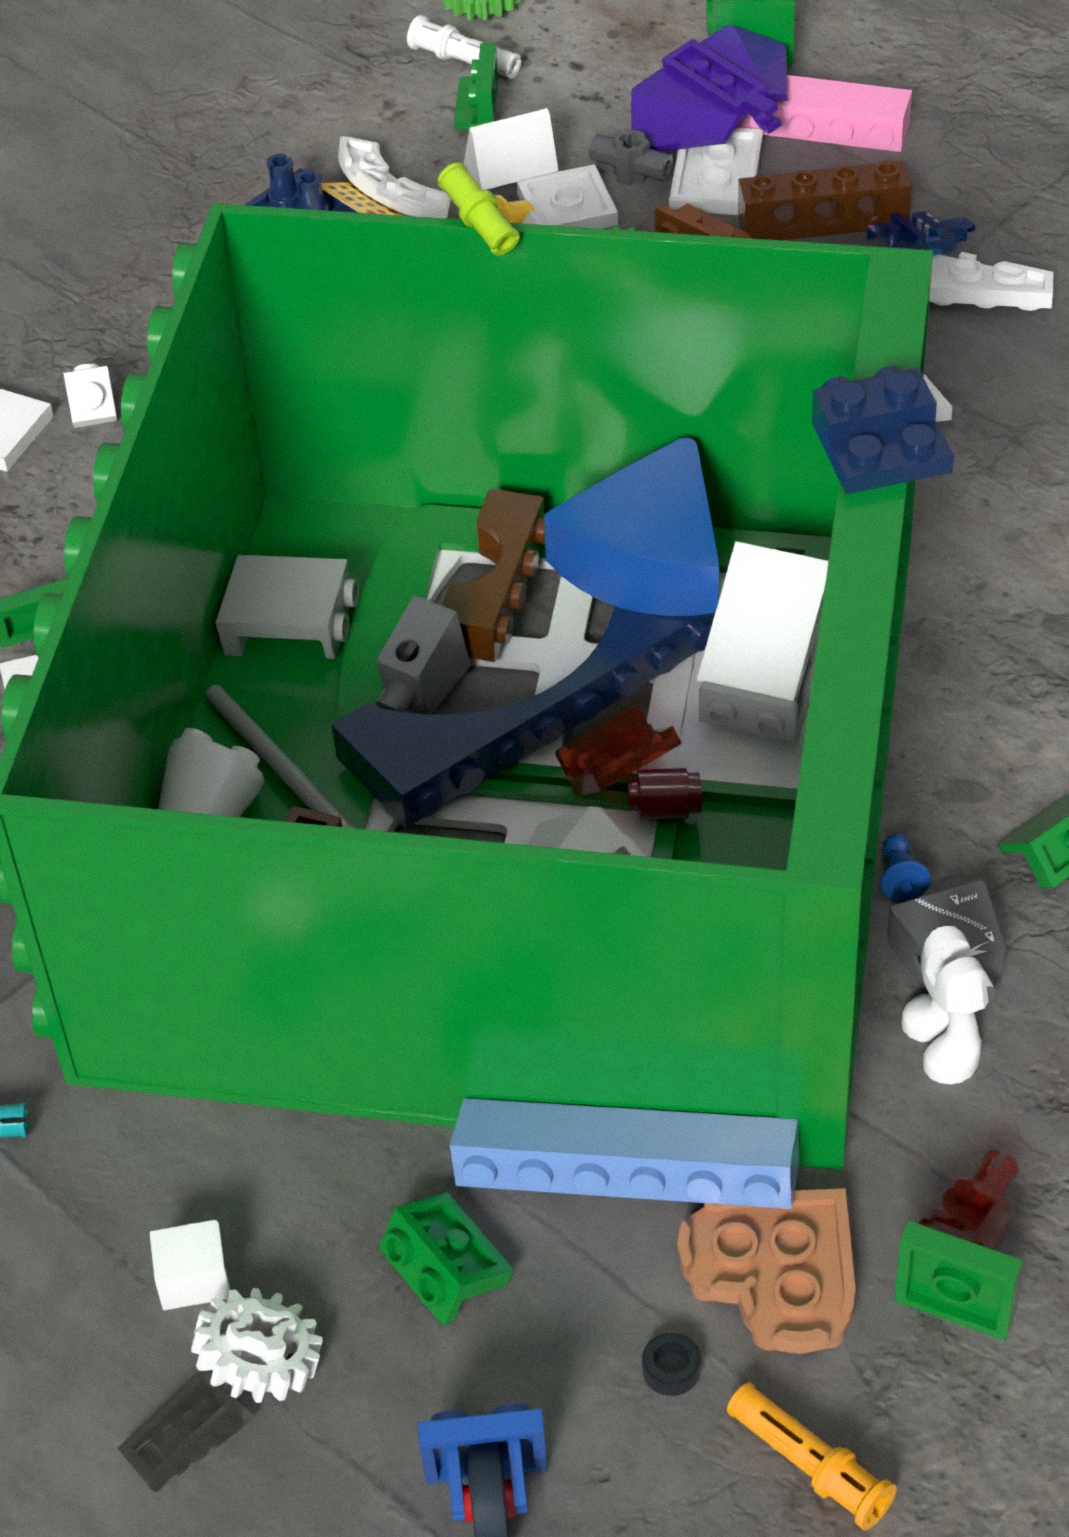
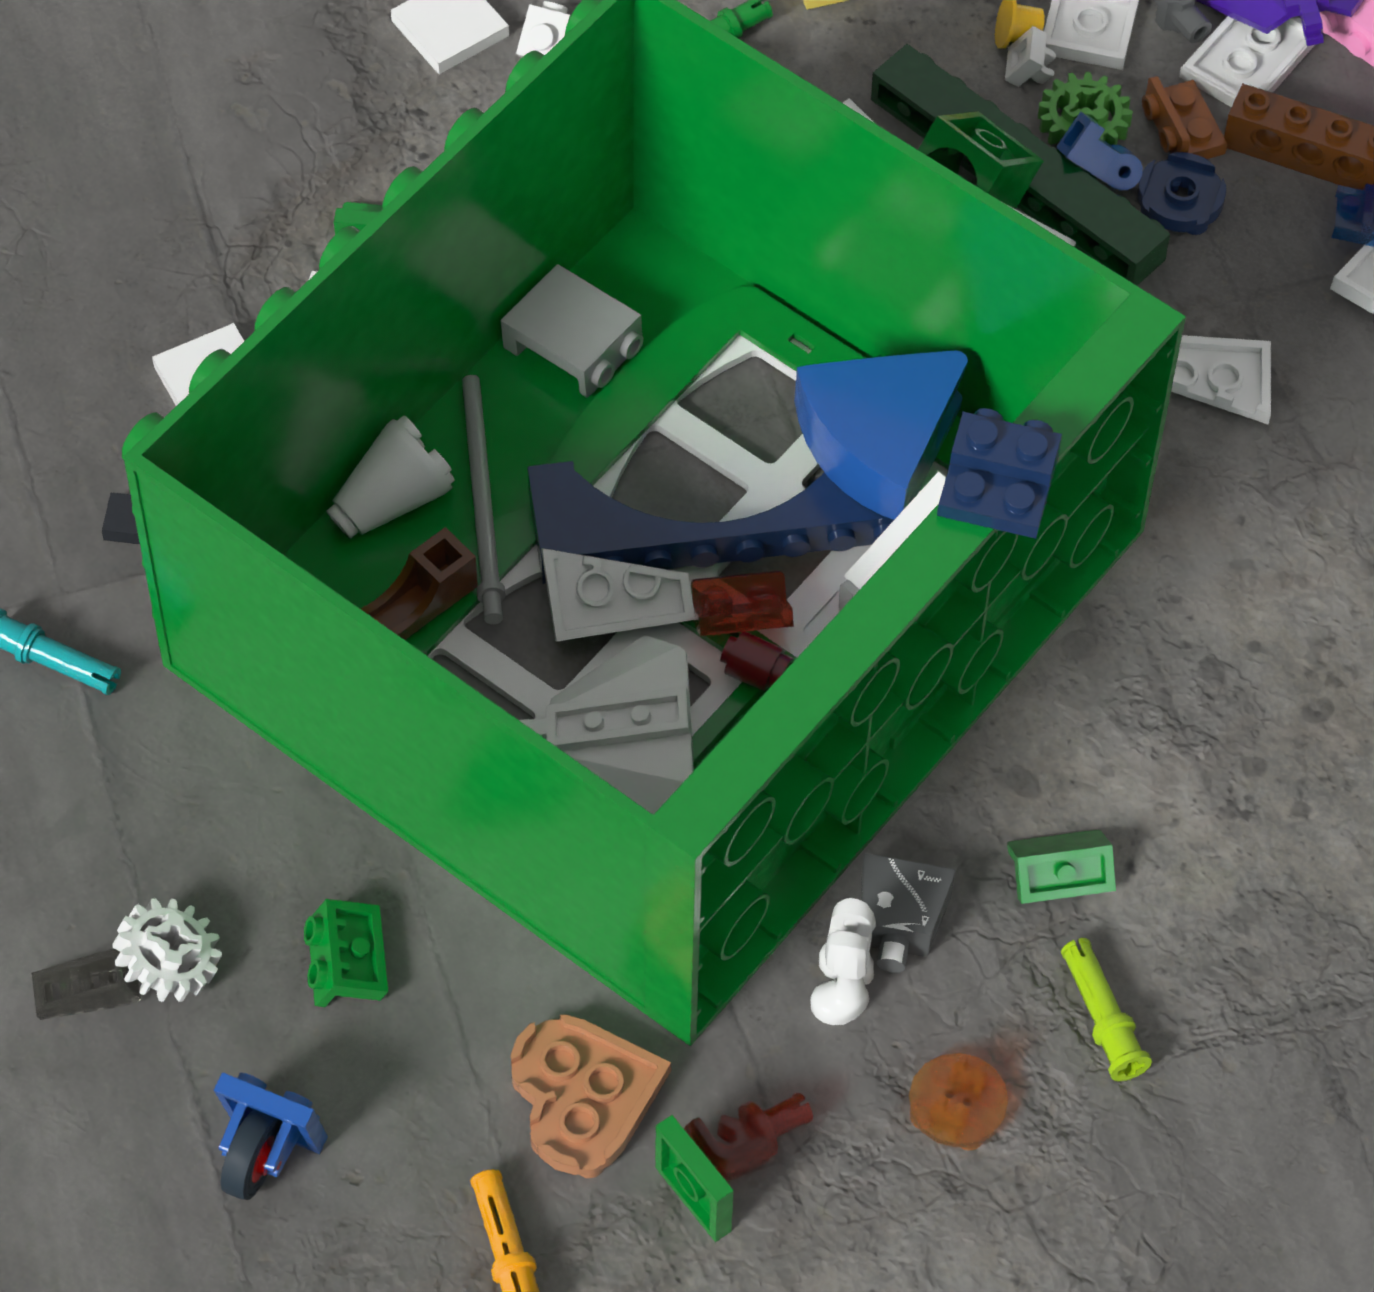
camera: 25 degrees right, 10 degrees up
(189, 1264) = (157, 861): white panel -> none
(422, 658) = (636, 443): dark grey torso -> none
(478, 208) = (833, 90): lime pin -> none
(490, 796) = (611, 596): none -> white wing
(509, 535) = (718, 420): reddish brown arch -> none
(626, 1153) = (524, 948): medium blue brick -> none
(671, 1364) = (457, 1125): black tile -> none
(903, 876) = (906, 830): blue piece -> none

